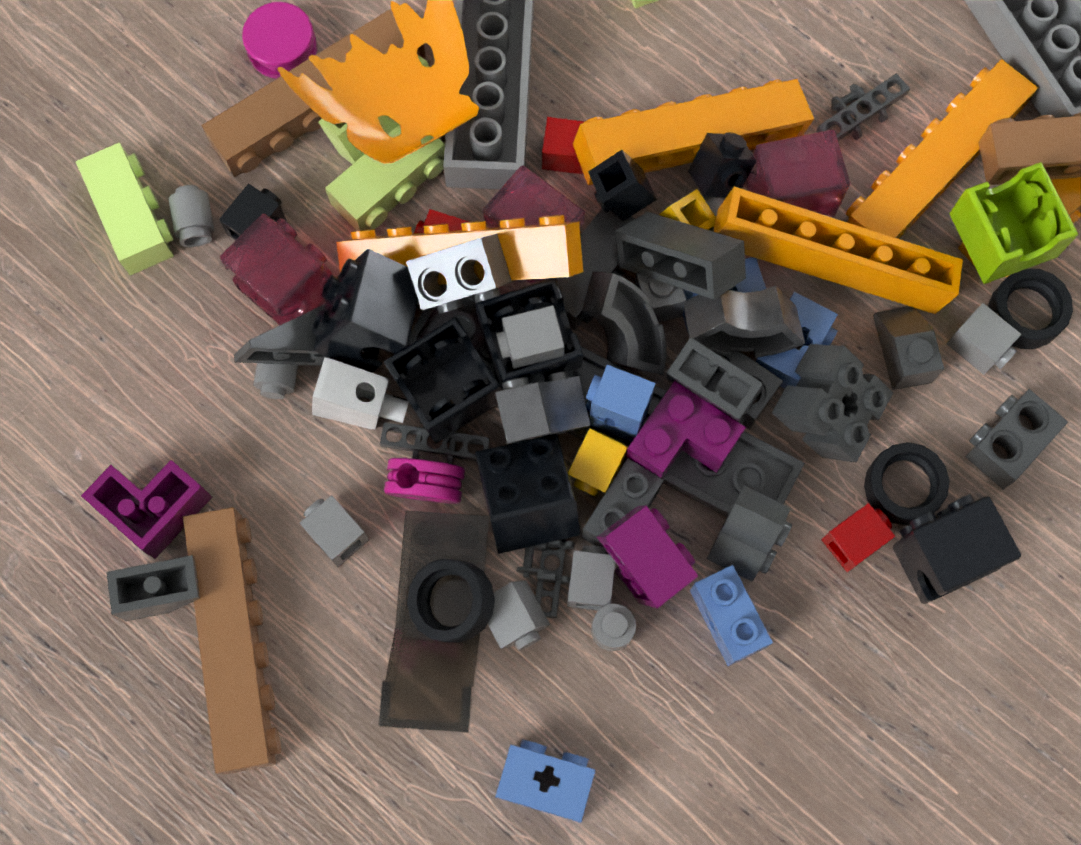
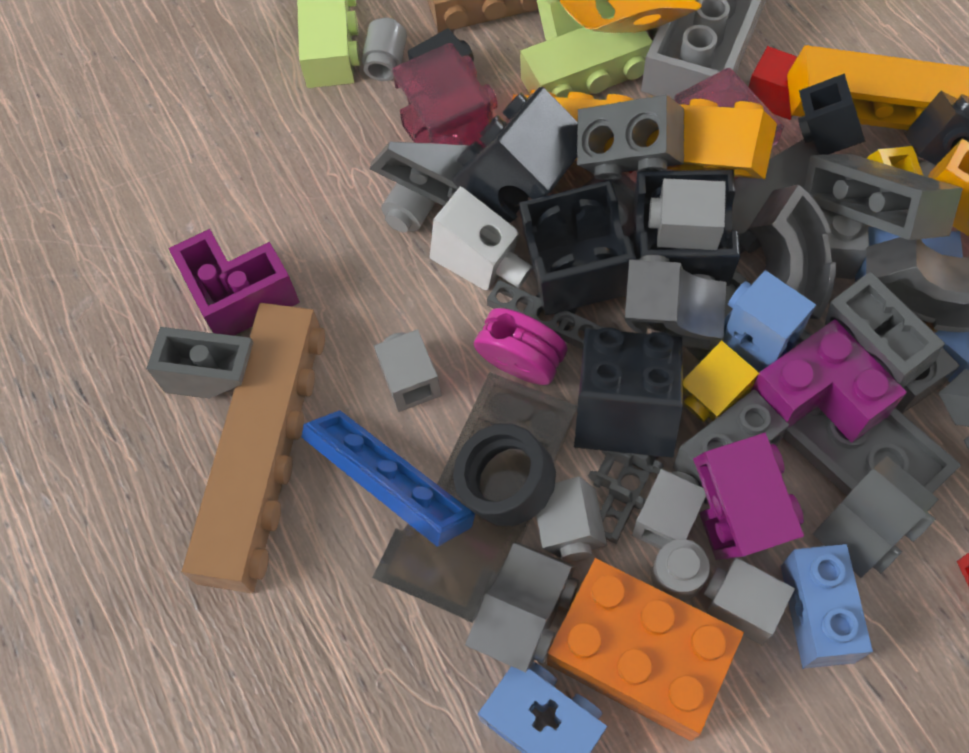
camera: 25 degrees right, 10 degrees down
(352, 632) = (389, 477): none -> blue tile
(500, 700) = (522, 606): none -> flat silver brick
(604, 698) = (644, 649): none -> orange brick
(671, 631) = (748, 599): none -> light grey brick

